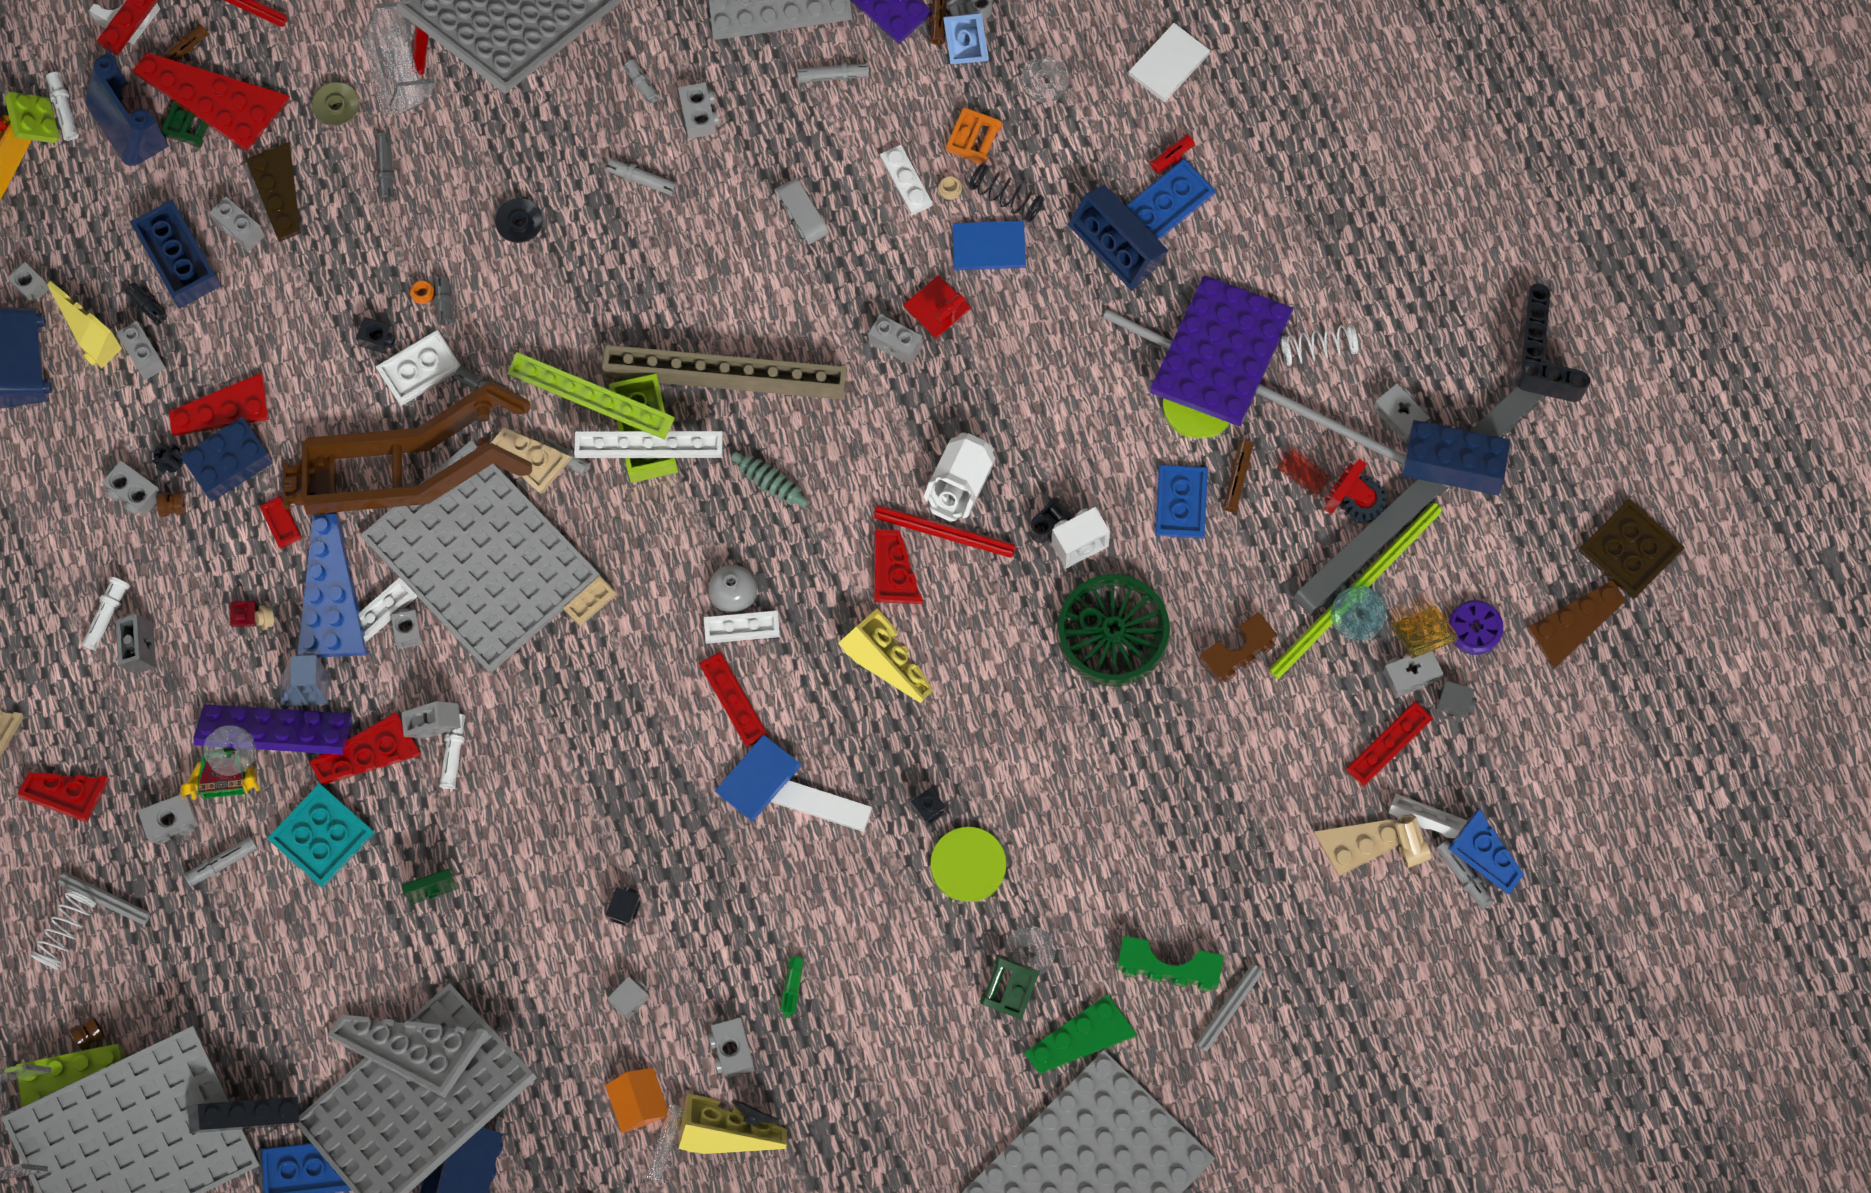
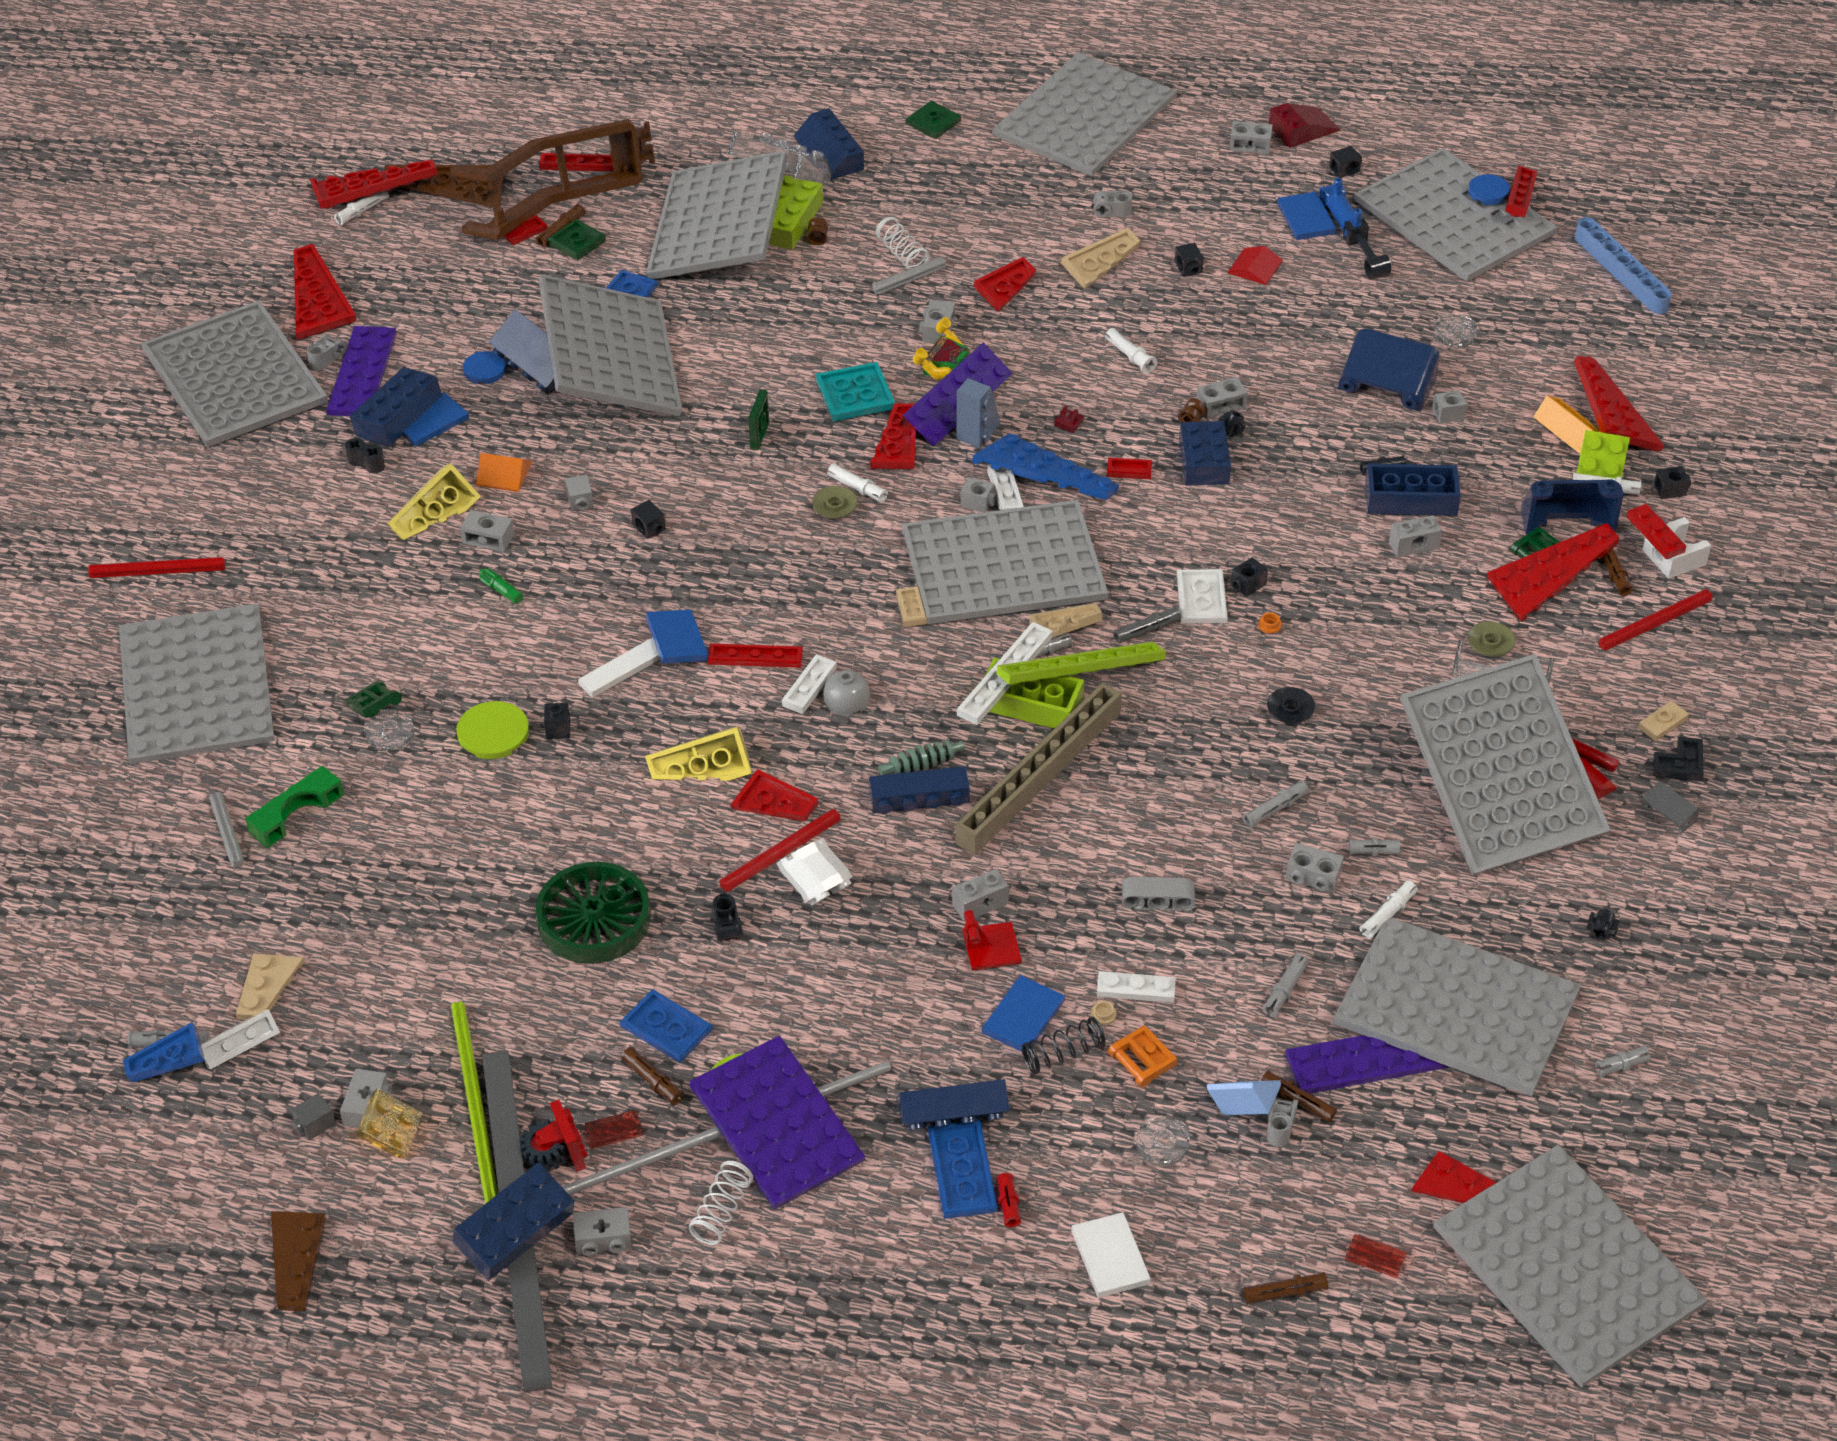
camera: 120 degrees right, 25 degrees down
(34, 59) = (1672, 482): none -> black brick
(91, 334) = (1387, 420): light yellow wedge -> none
(135, 644) = (1088, 350): dark grey brick -> none
(140, 350) = (1339, 442): light grey brick -> none
(220, 861) = (883, 321): light grey pin -> none
(222, 408) = (1253, 475): red wing -> none
(241, 741) = (955, 353): clear plate -> none
(243, 1115) = (680, 262): black brick -> none
(264, 617) = (1054, 426): tan plate -> none
(276, 185) = (1432, 577): dark brown wing -> none
(315, 474) = (1140, 489): reddish brown piece -> none
(385, 175) = (1407, 647): dark grey pin -> none
(414, 1050) = (639, 359): light grey wing -> none
(431, 719) = (886, 470): light grey brick -> none
(443, 300) = (1251, 631): dark grey pin -> none
(490, 740) = (834, 502): none -> olive dish
(664, 1144) = (445, 458): clear pin -> none
(704, 38) = (1394, 903): none -> white pin
(753, 1116) = (432, 520): black dish -> none
(809, 457) = (919, 790): none -> dark blue brick
(1080, 537) = (690, 921): white brick -> none
(1087, 1033) = (297, 732): green wing -> none
(1223, 663) = (498, 971): reddish brown arch -> none
(1373, 613) = (442, 1078): clear light blue wheel -> none
(1389, 744) = (324, 1053): red tile -> none
(1412, 843) = (228, 1010): tan piece -> none
(1486, 617) = (361, 1161): dark purple wheel -> none
(1531, 371) = (564, 1365): black beam -> none
(1631, 549) = (317, 1341): dark brown plate -> none

